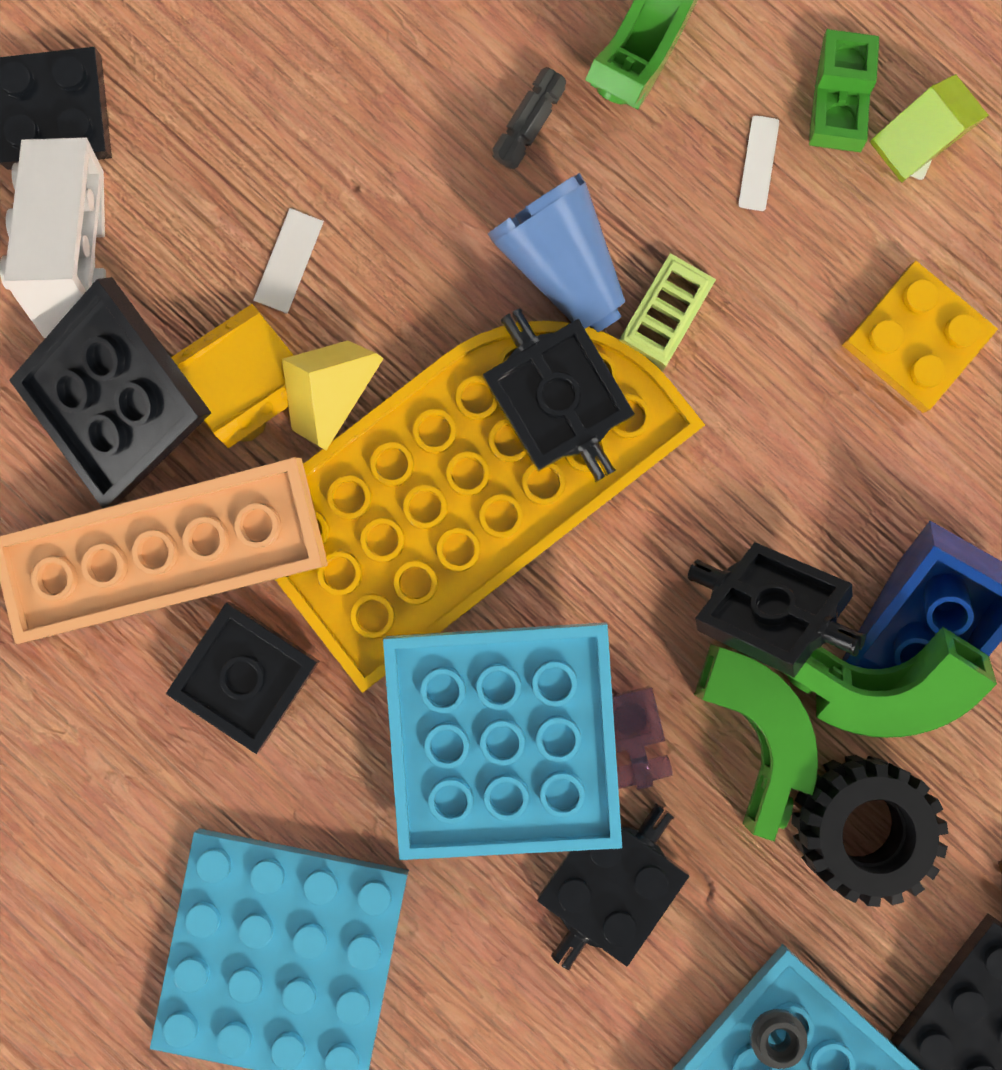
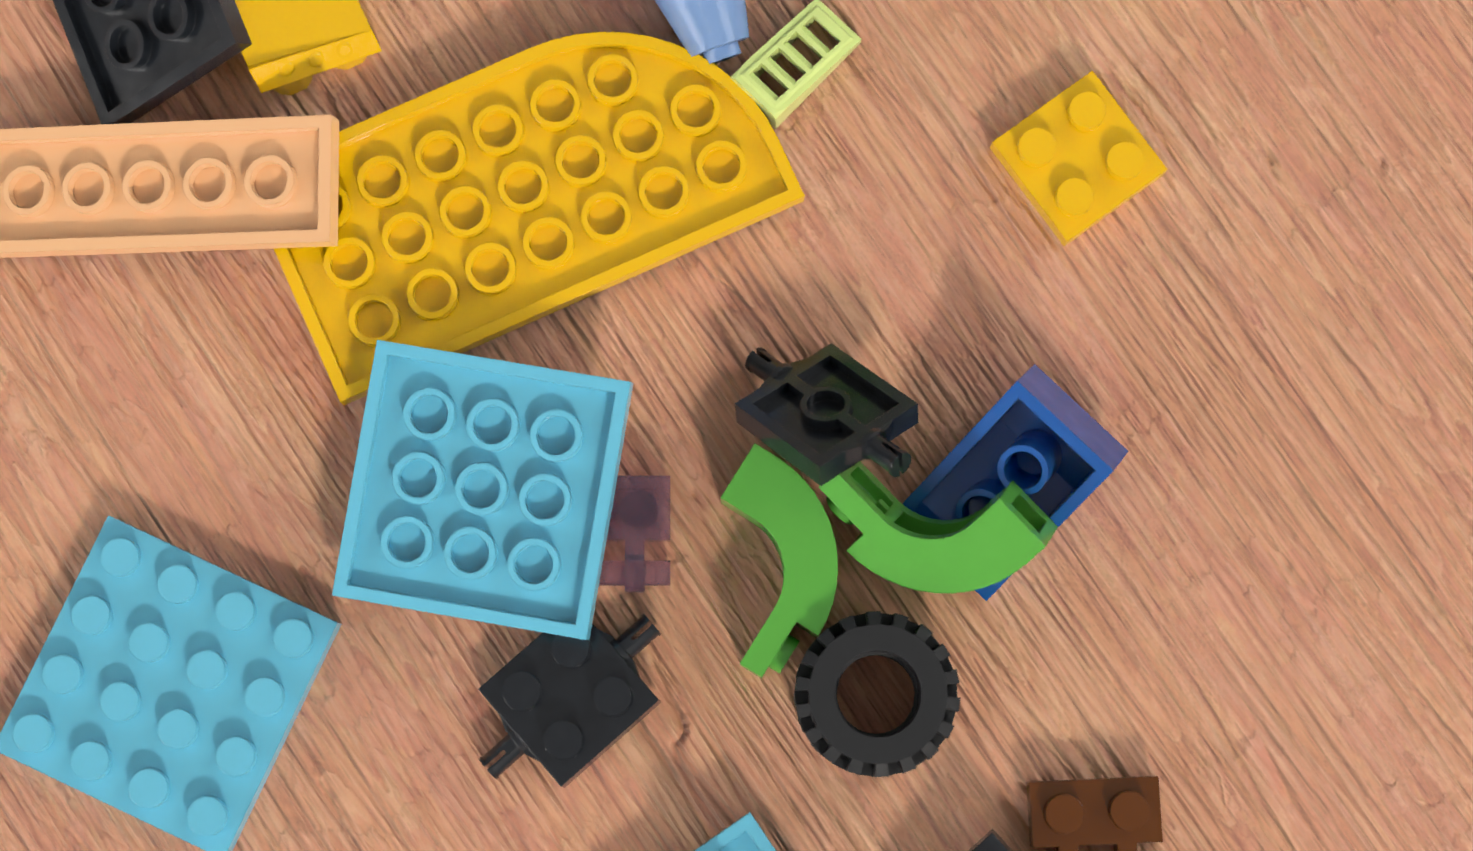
camera: 15 degrees right, 5 degrees down
(242, 677) = (210, 354): black plate -> none
(325, 388) = (387, 52): light yellow slope -> none
(558, 395) = (643, 120): black plate -> none

